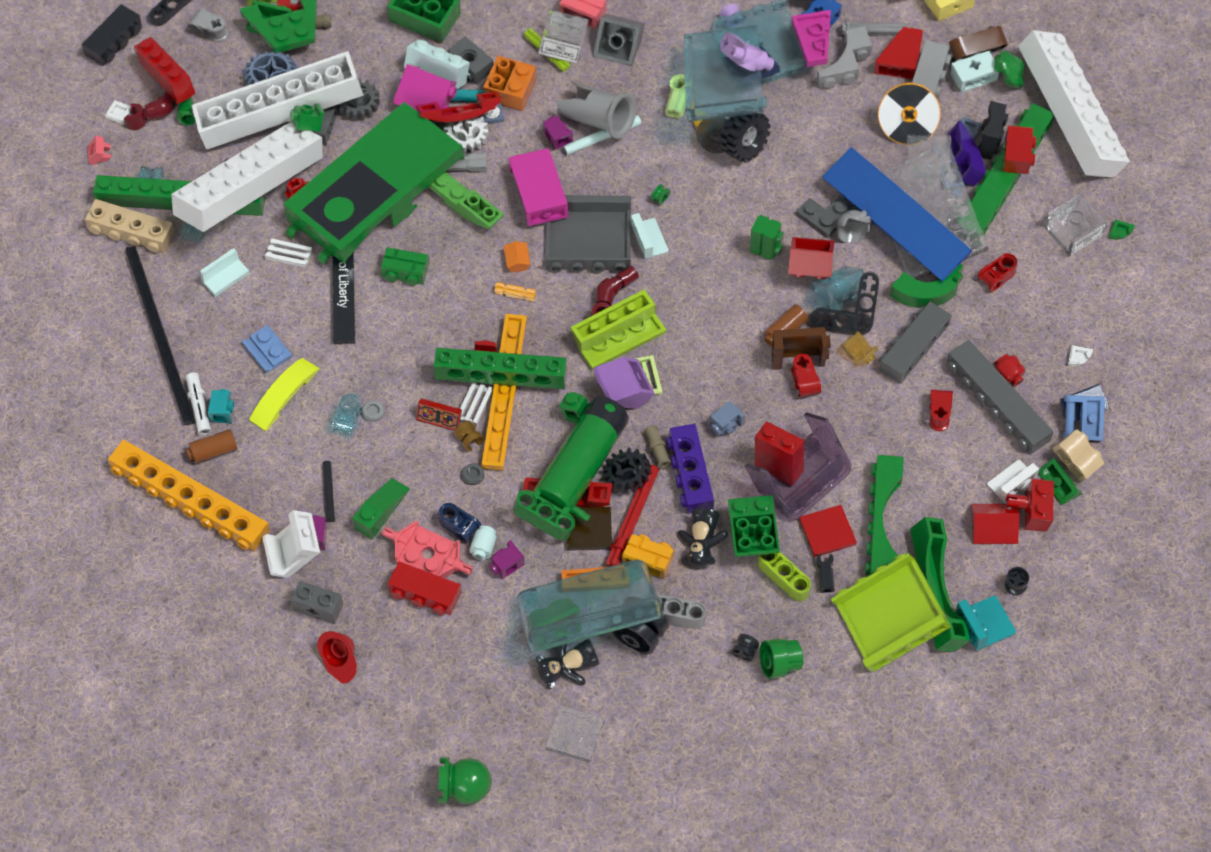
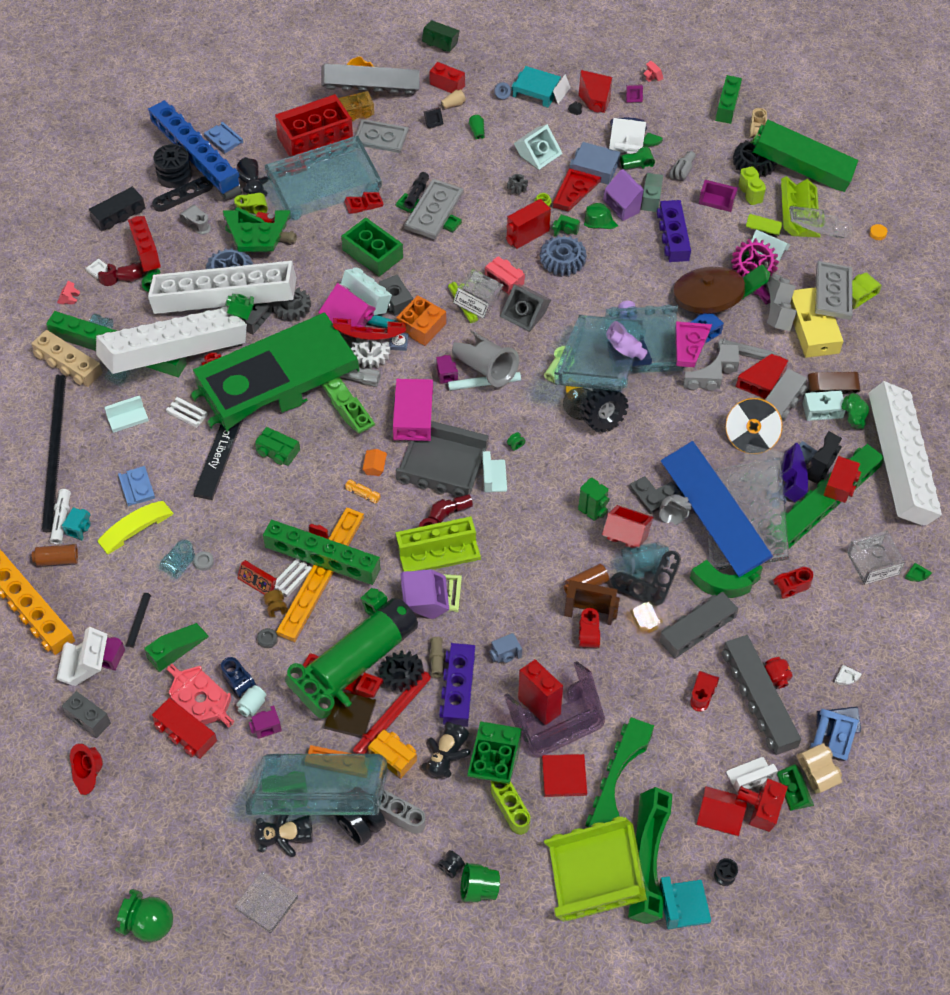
camera: 15 degrees right, 5 degrees down
(825, 574) = (549, 816): black bar -> none

